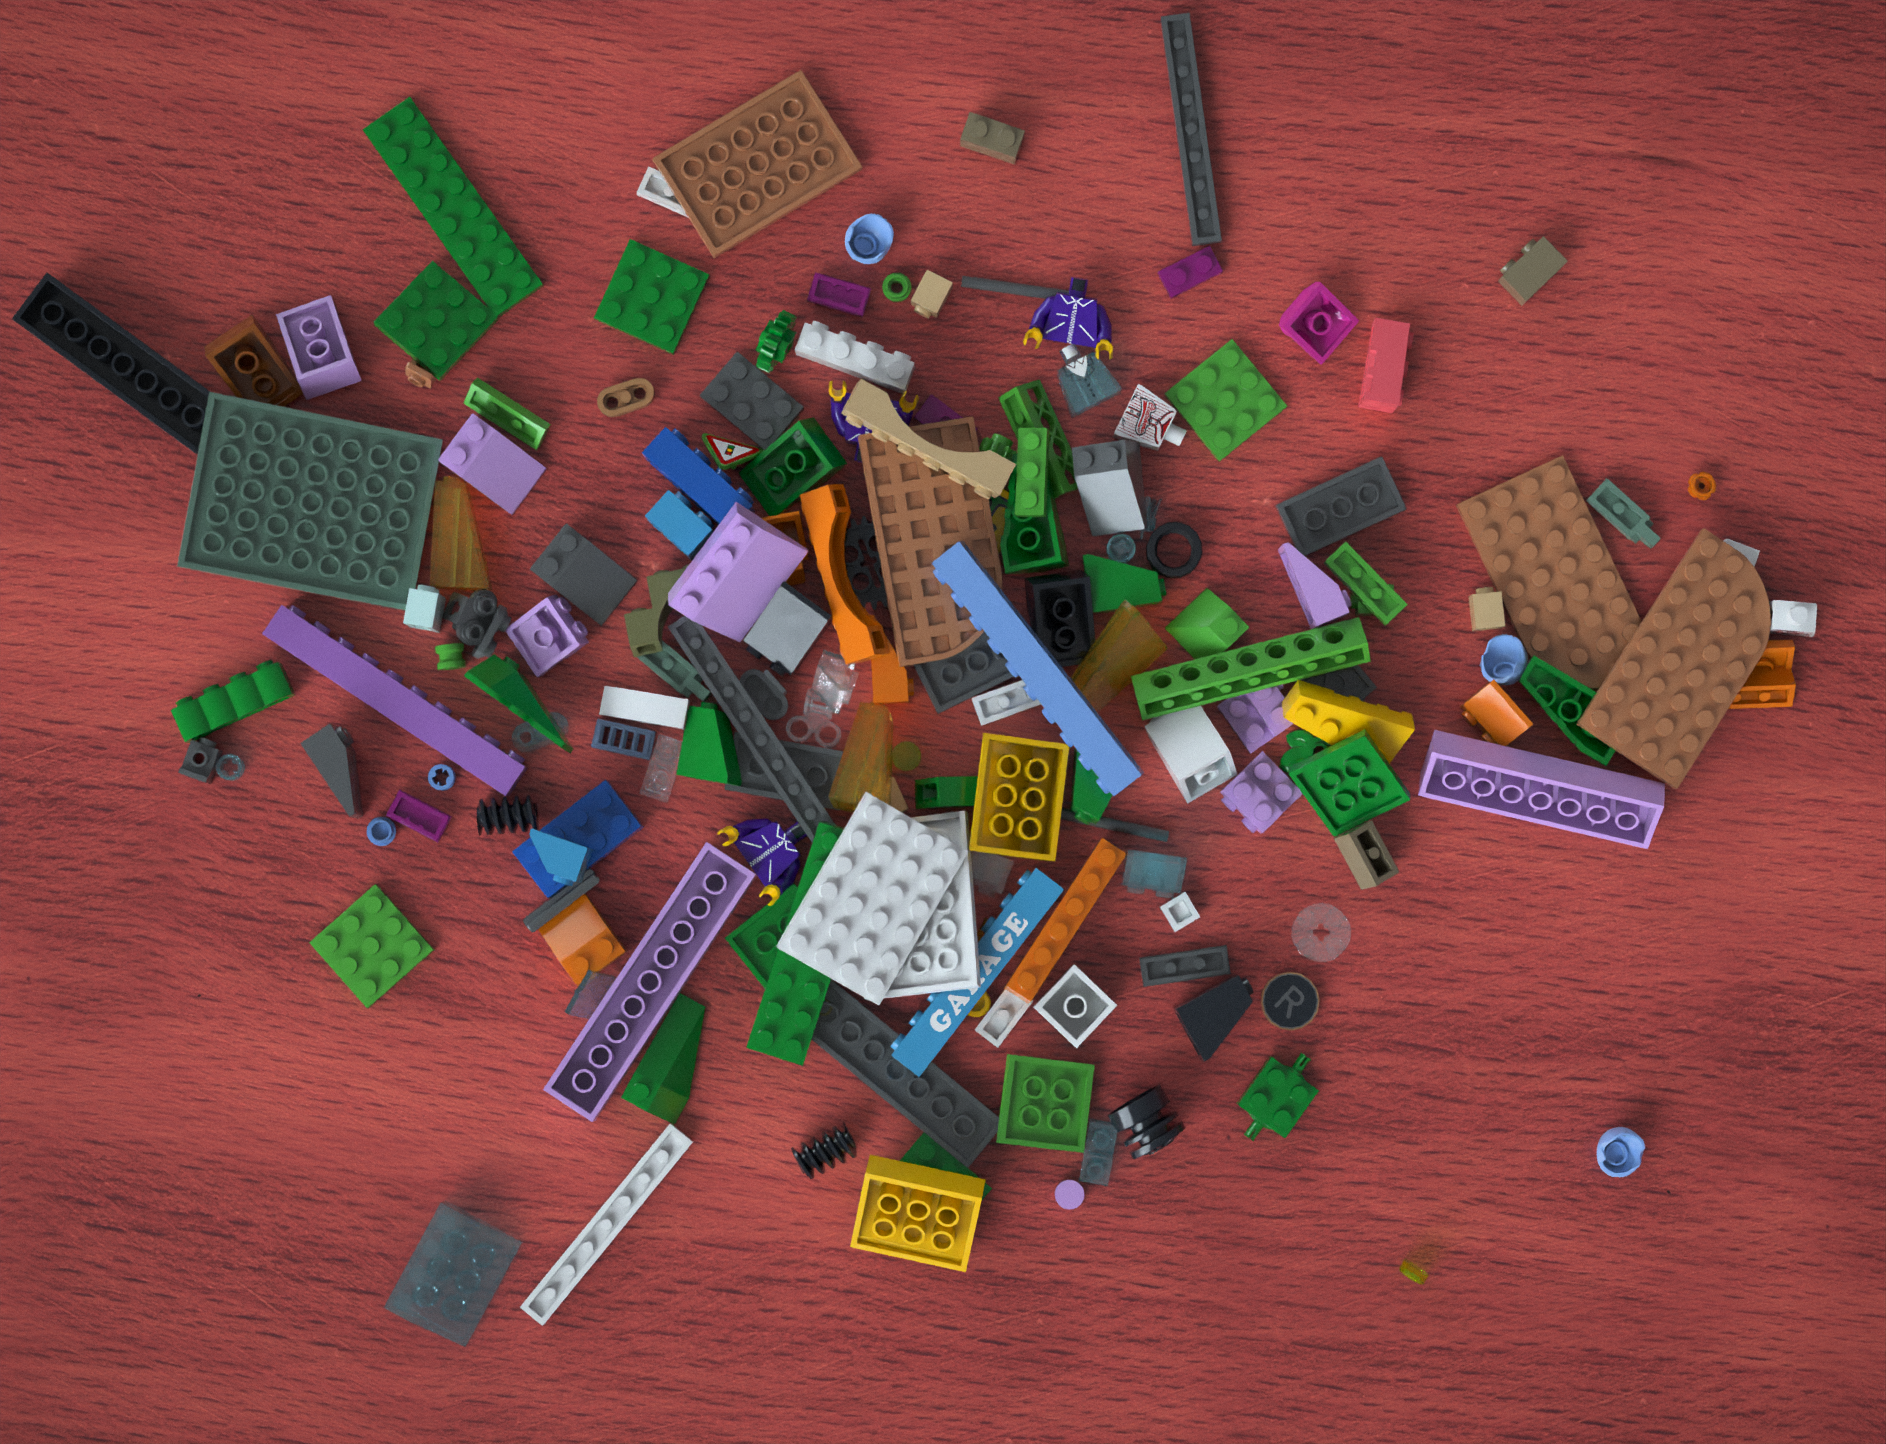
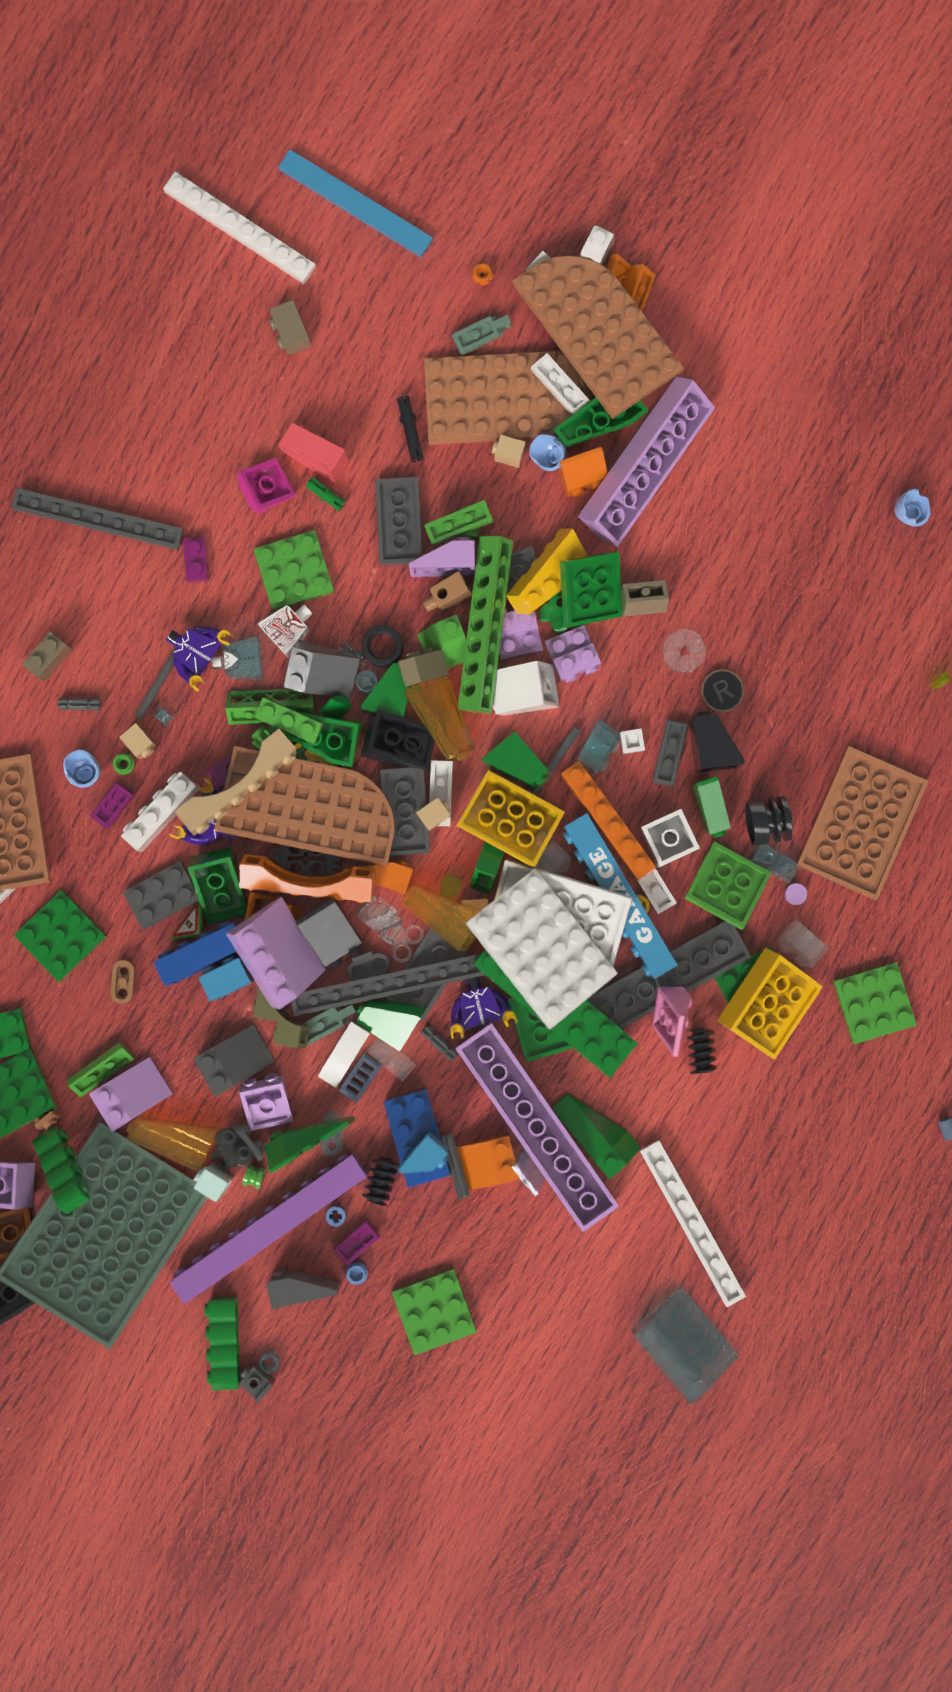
camera: 65 degrees left, 0 degrees up
(368, 418) = (61, 1169): none -> green brick
(705, 820) = (439, 1043): none -> dark grey axle
(776, 341) = (126, 861): green gear -> none
(852, 1096) = (671, 1016): none -> bright pink slope
(949, 201) = (79, 704): none -> dark grey axle
(971, 1347) = (874, 1003): none -> bright green plate
(975, 312) = (163, 716): none -> clear light blue bush
(987, 699) = (434, 813): none -> tan brick
(1009, 1225) = (801, 943): none -> clear brick
(1037, 668) = (426, 770): medium blue brick -> none
(1074, 523) = (336, 706): none -> green slope
(1135, 1044) = (711, 806): none -> slope
(1165, 612) = (423, 667): none -> dark tan brick
(1192, 1243) = (862, 823): none -> nougat plate
(1277, 1097) = (784, 725): green plate -> none
(1282, 616) = (457, 591): none -> medium nougat torso
(1338, 401) = (326, 494): none -> green axle
(1475, 466) = (408, 420): none -> black pin
(1595, 640) = (559, 384): none -> white plate
(1636, 154) = (239, 227): none -> white plate
(1727, 288) = (355, 203): none -> dark azure tile

